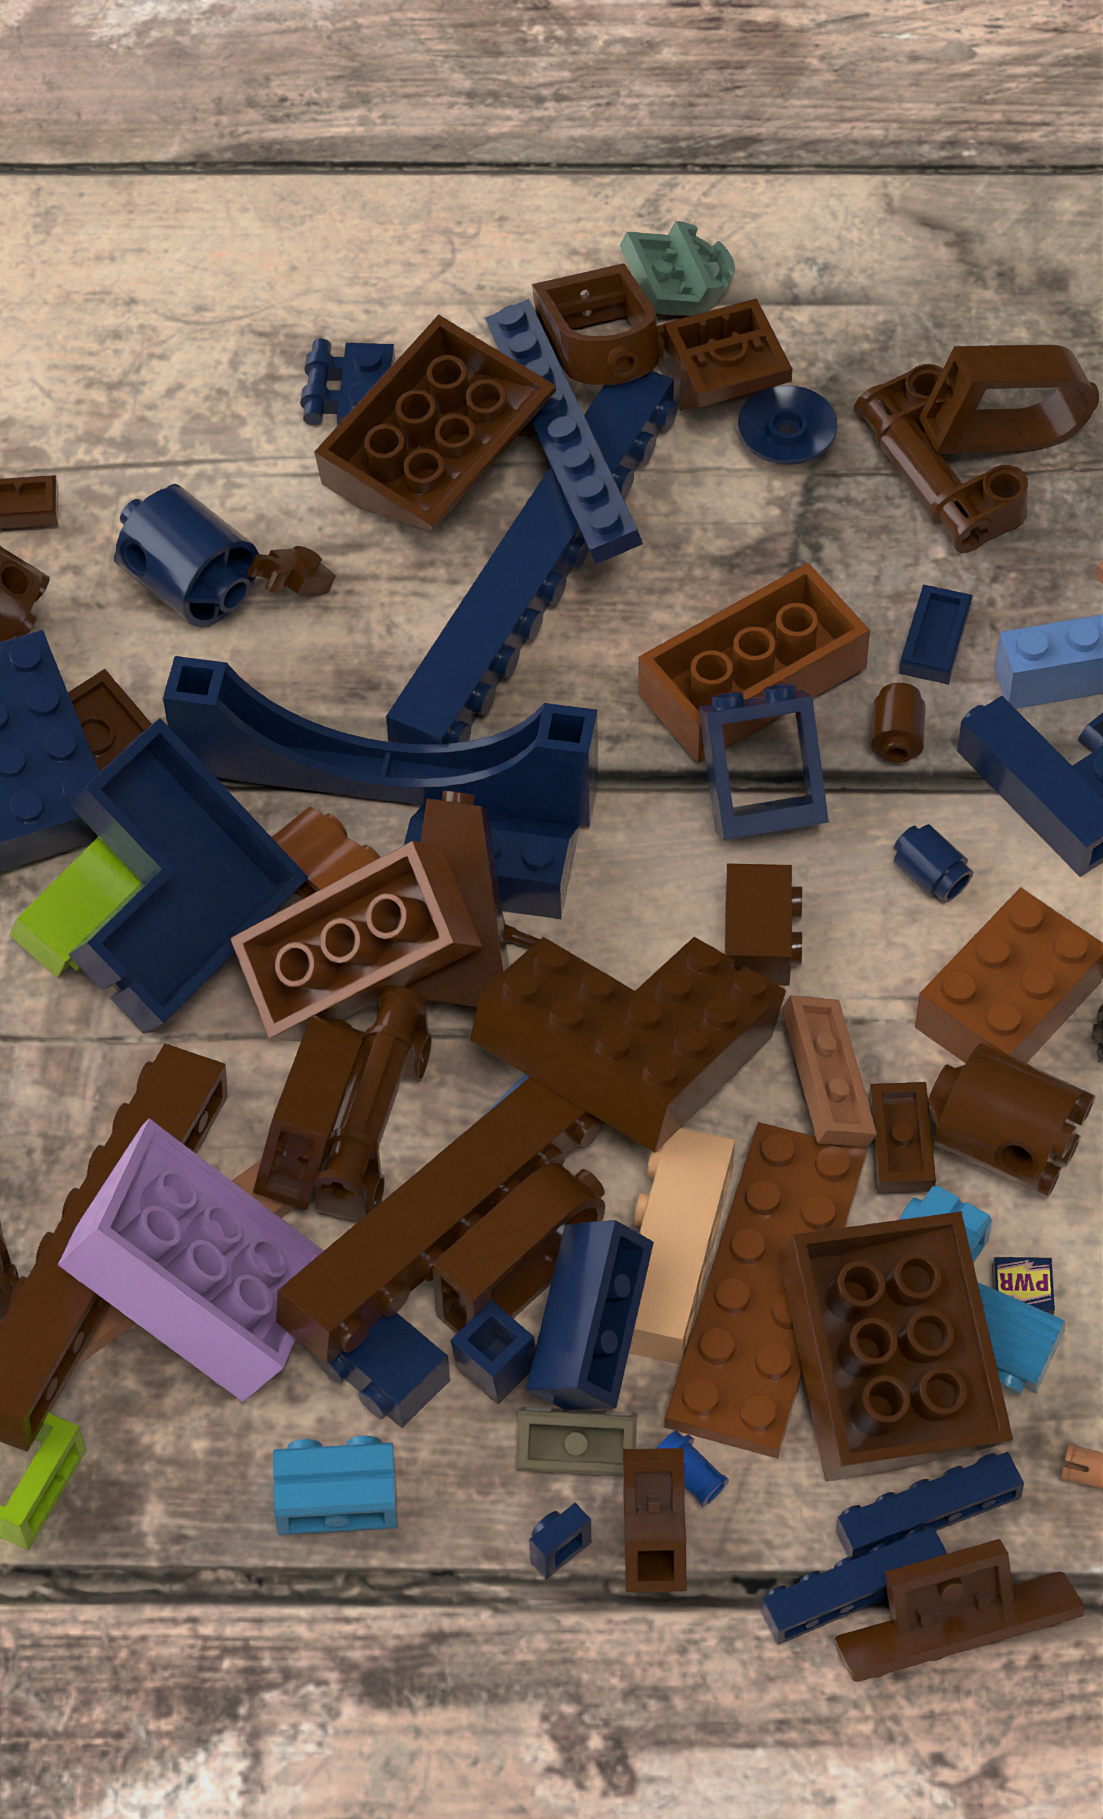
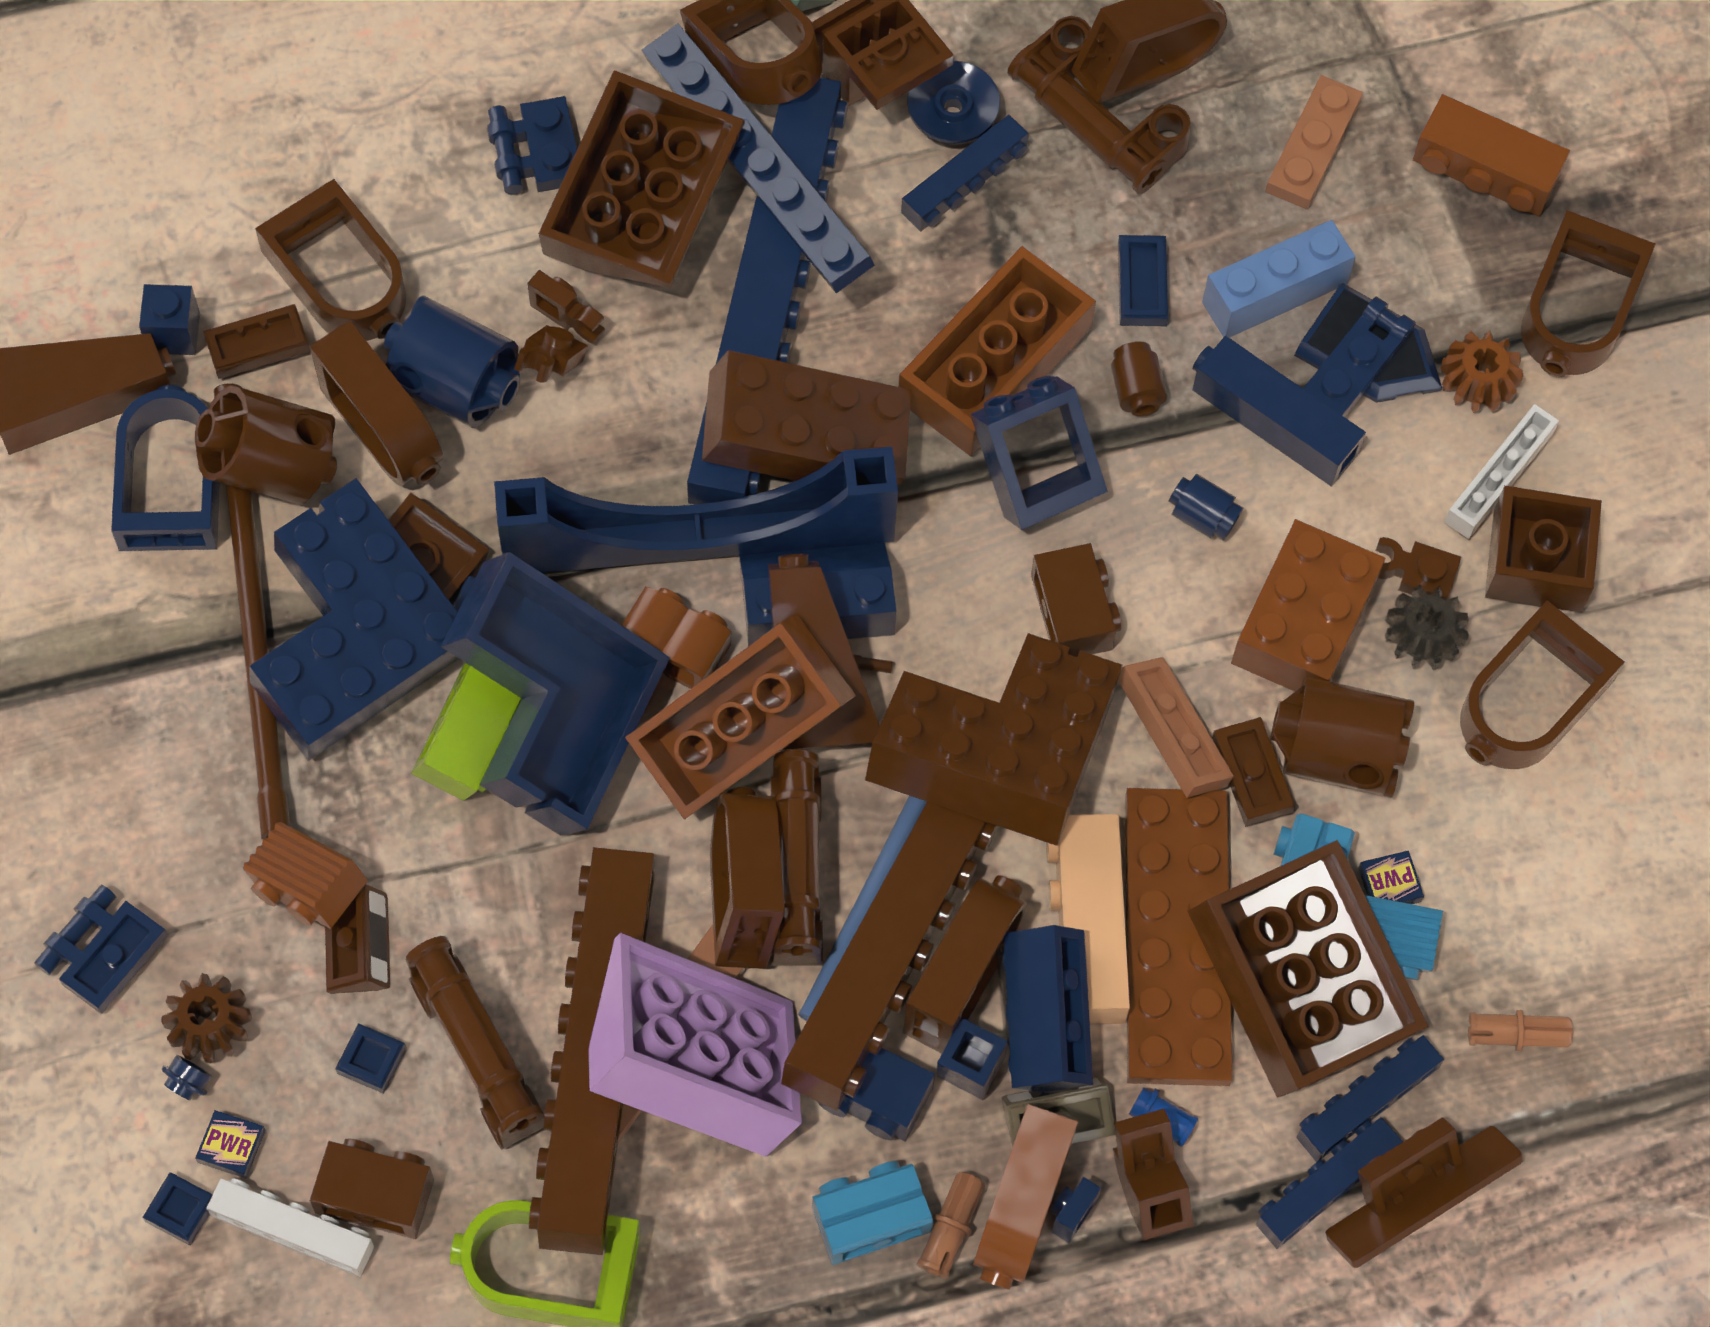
camera: 20 degrees left, 10 degrees up
(92, 406) = (311, 218): none -> reddish brown window
(95, 577) = (376, 406): none -> reddish brown window
(318, 527) = (559, 303): none -> reddish brown plate
(419, 1522) = (951, 1225): none -> nougat axle
(501, 667) = (797, 417): none -> reddish brown brick
(503, 1501) = (1024, 1196): none -> dark orange window
(779, 494) = (965, 173): none -> dark blue piece

